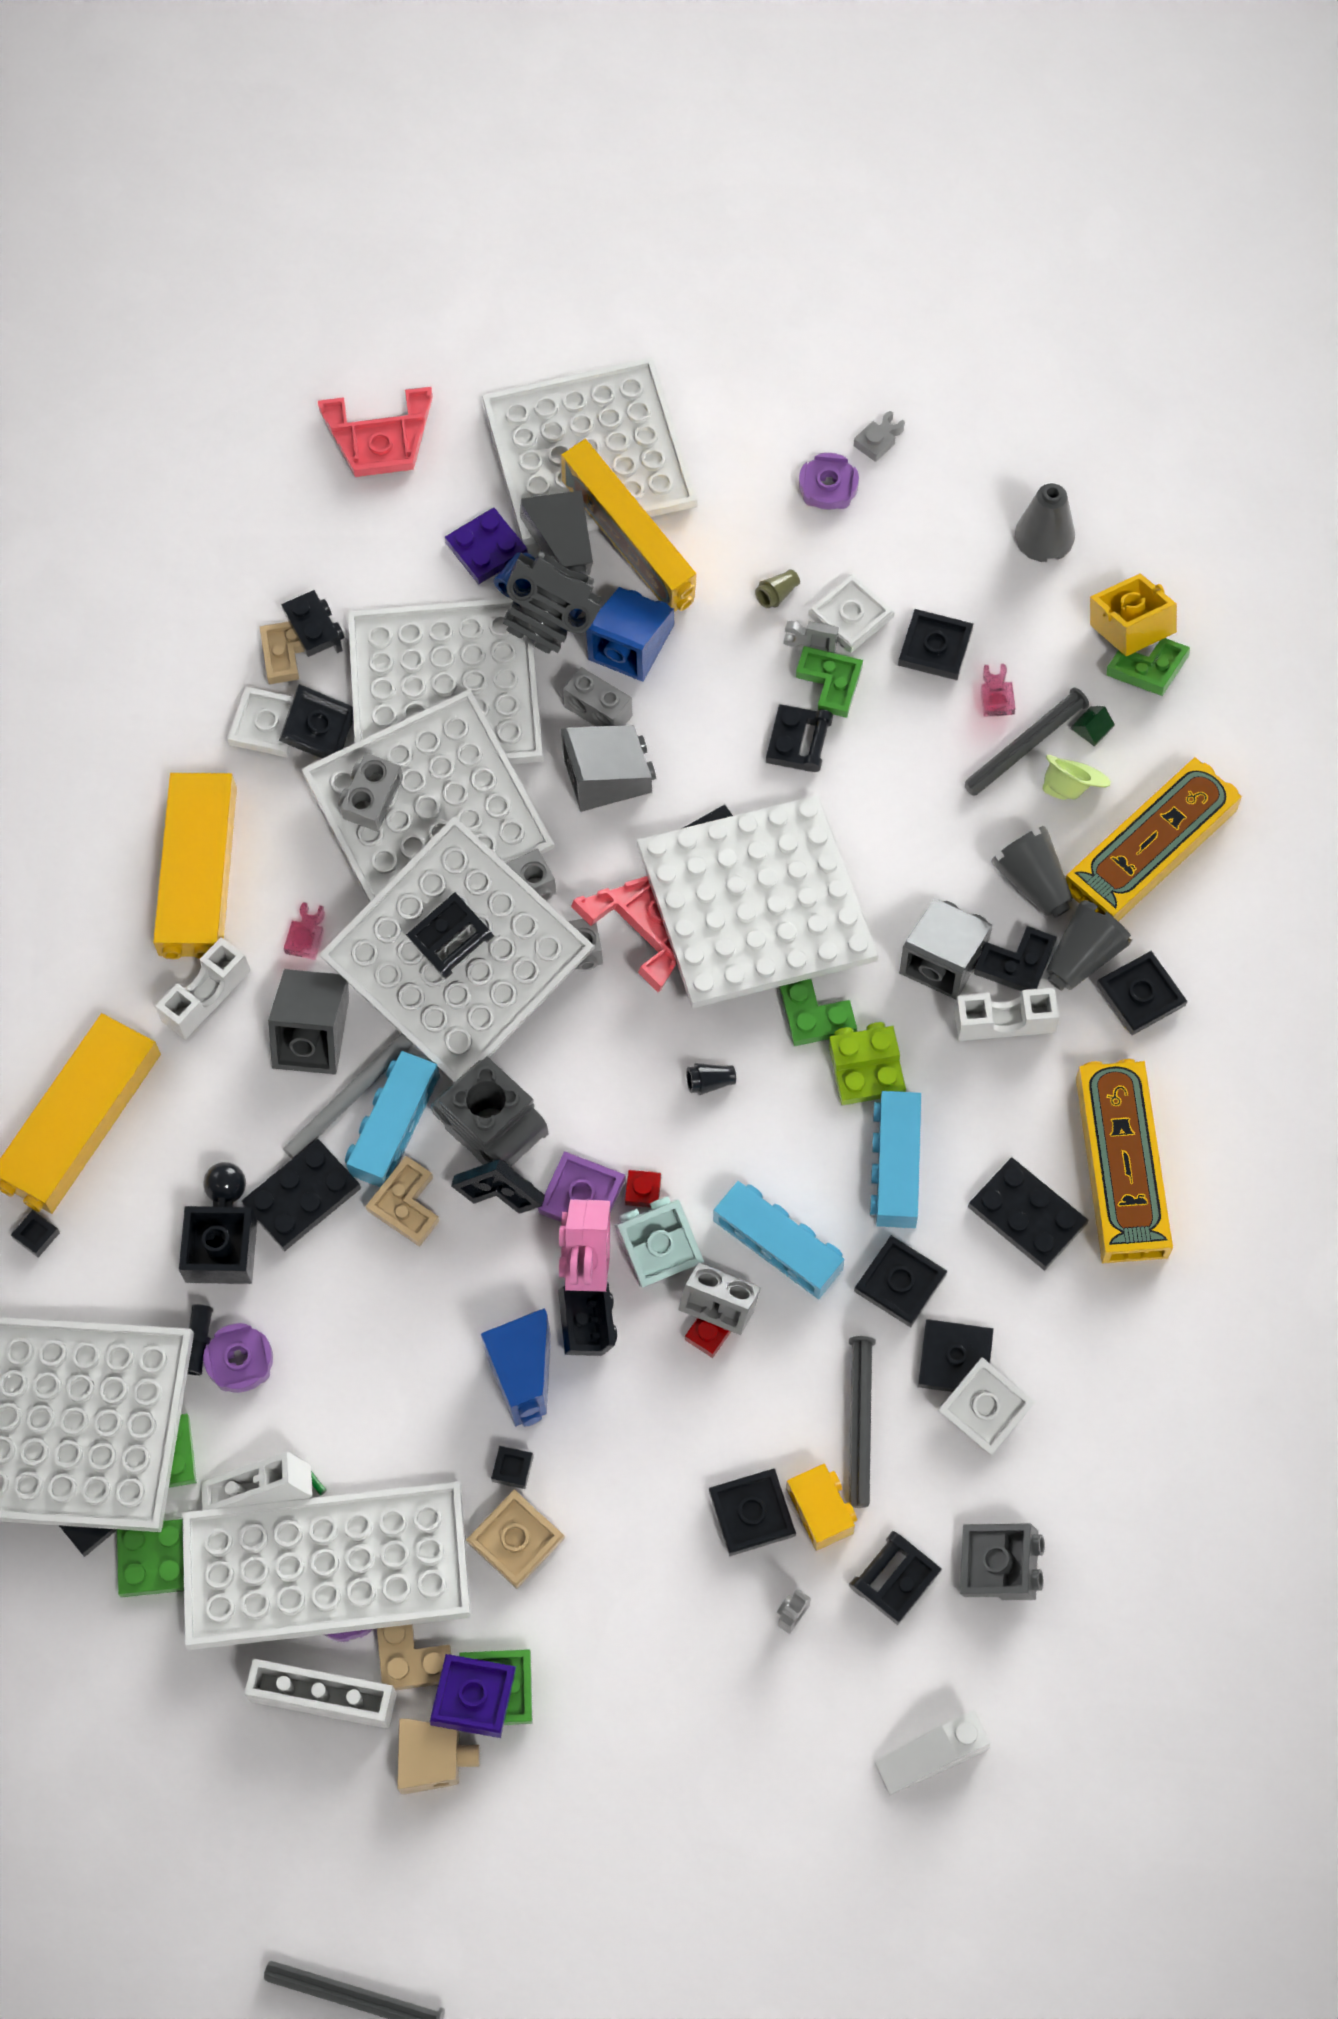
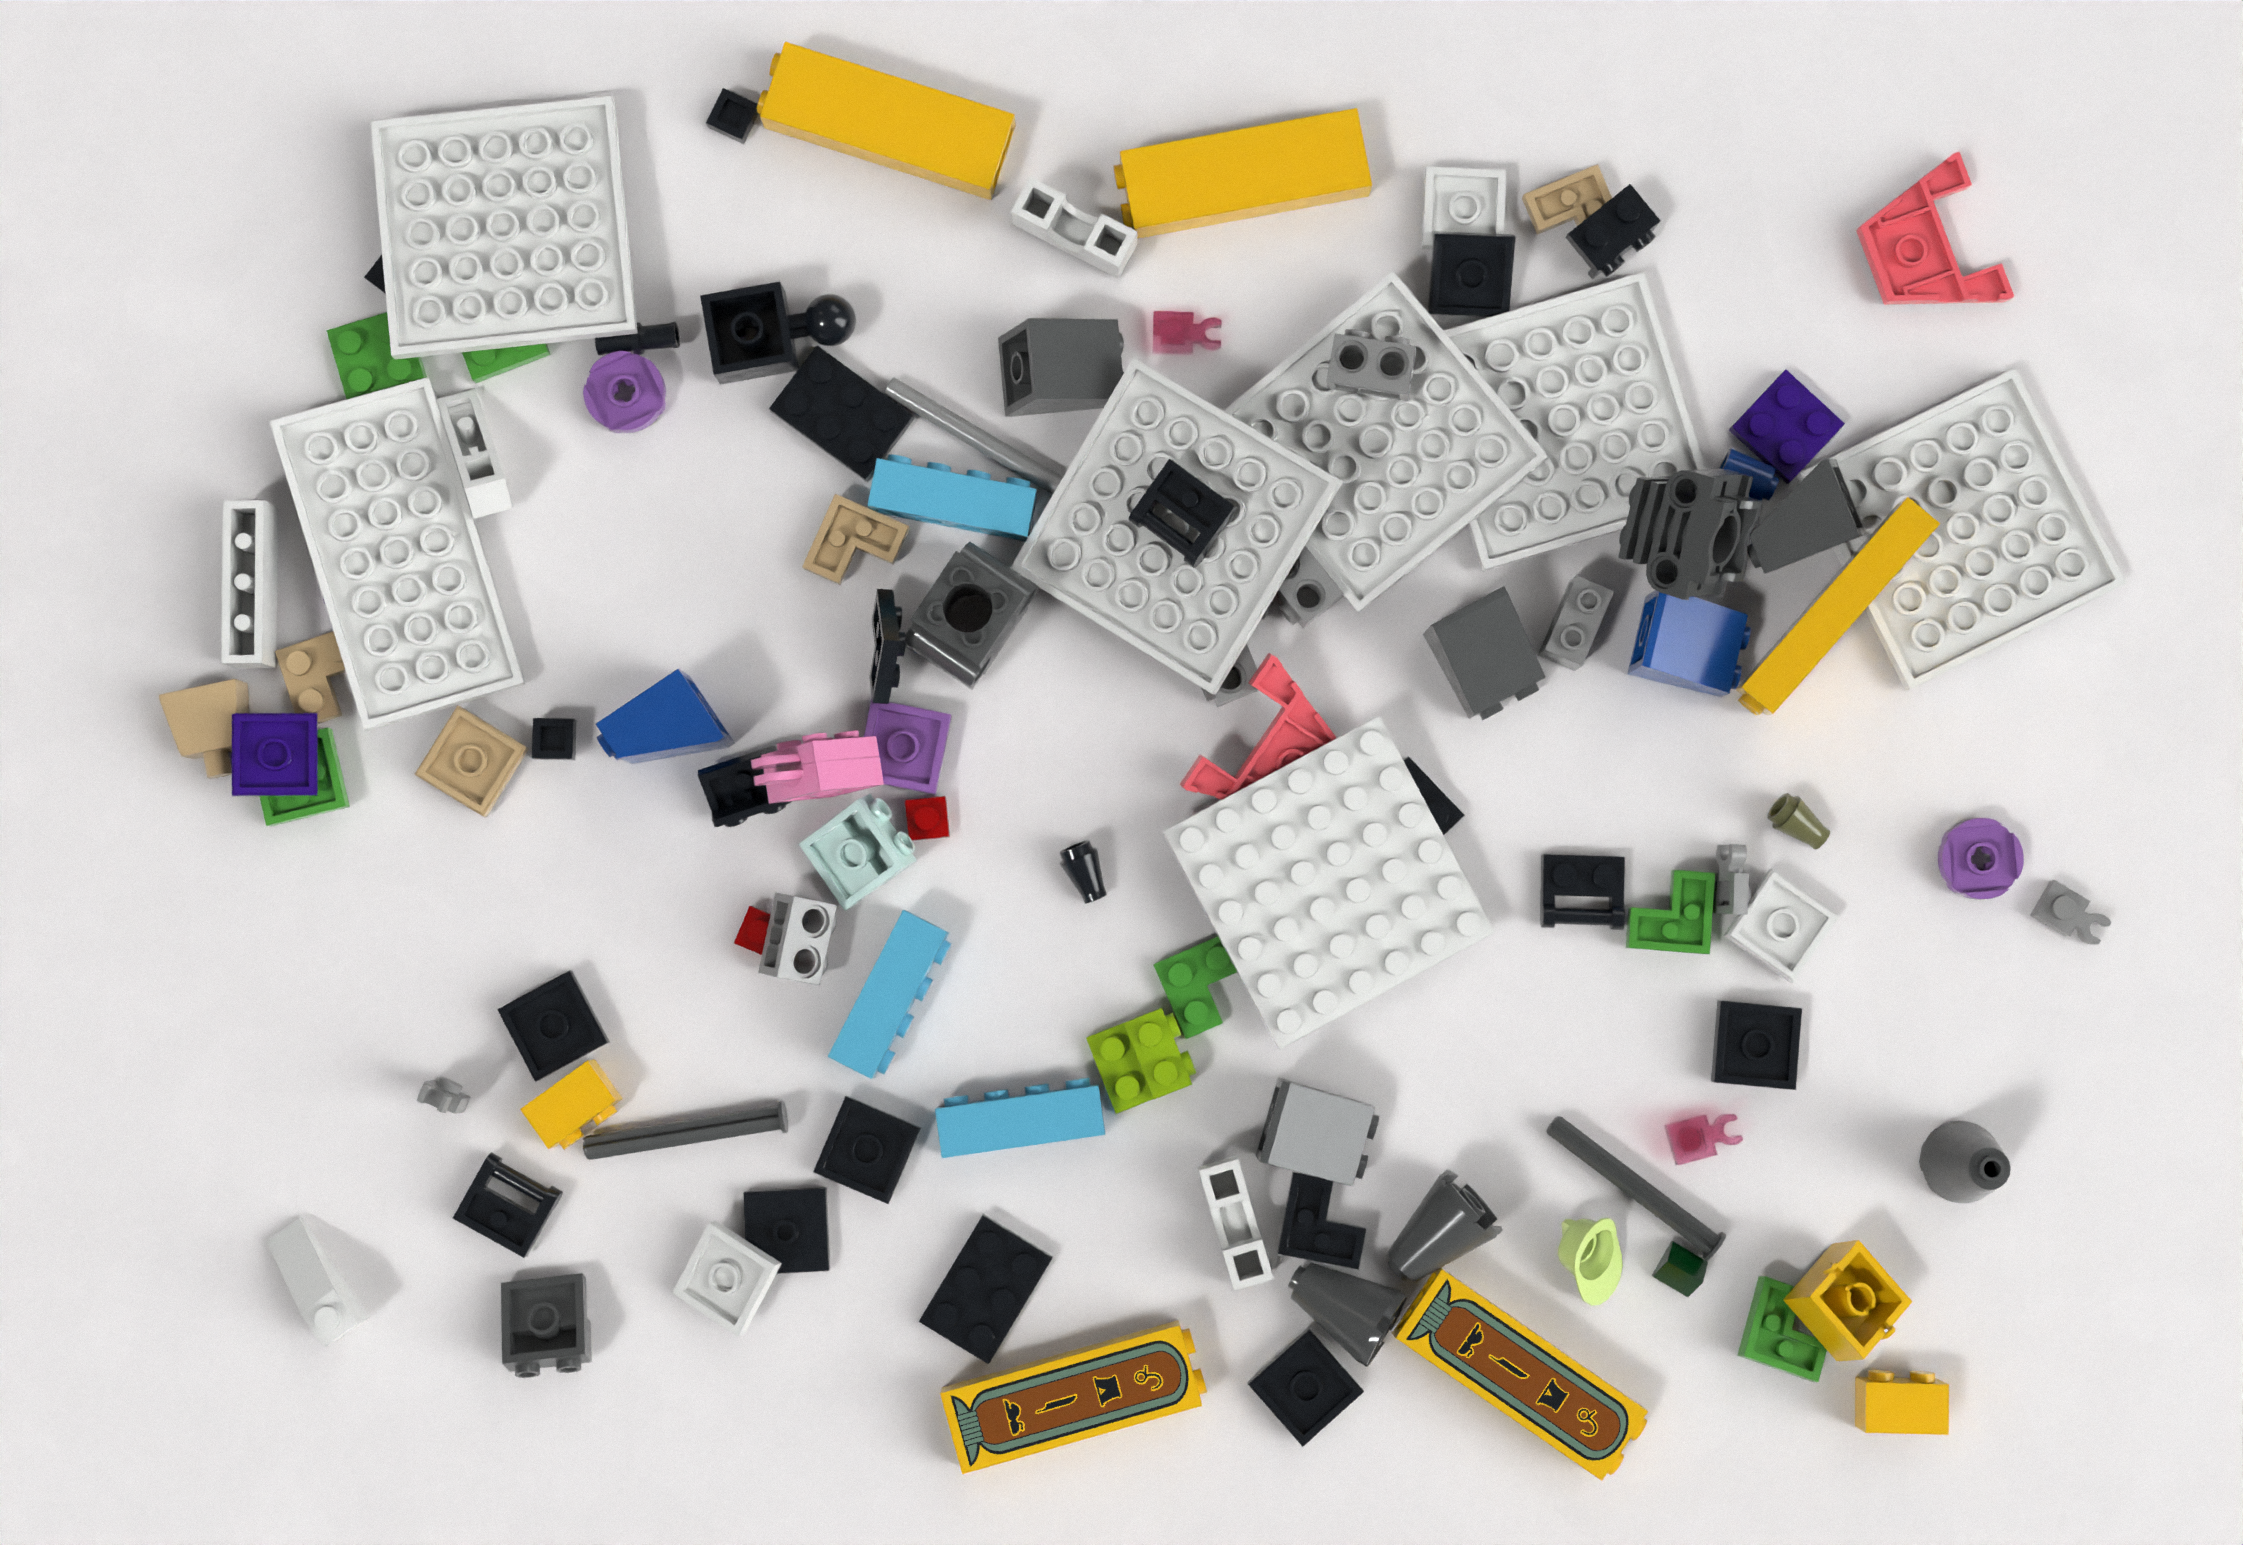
camera: 75 degrees right, 20 degrees up
(317, 1485) = (499, 517): green piece -> none
(1214, 599) = (1901, 1404): none -> yellow brick

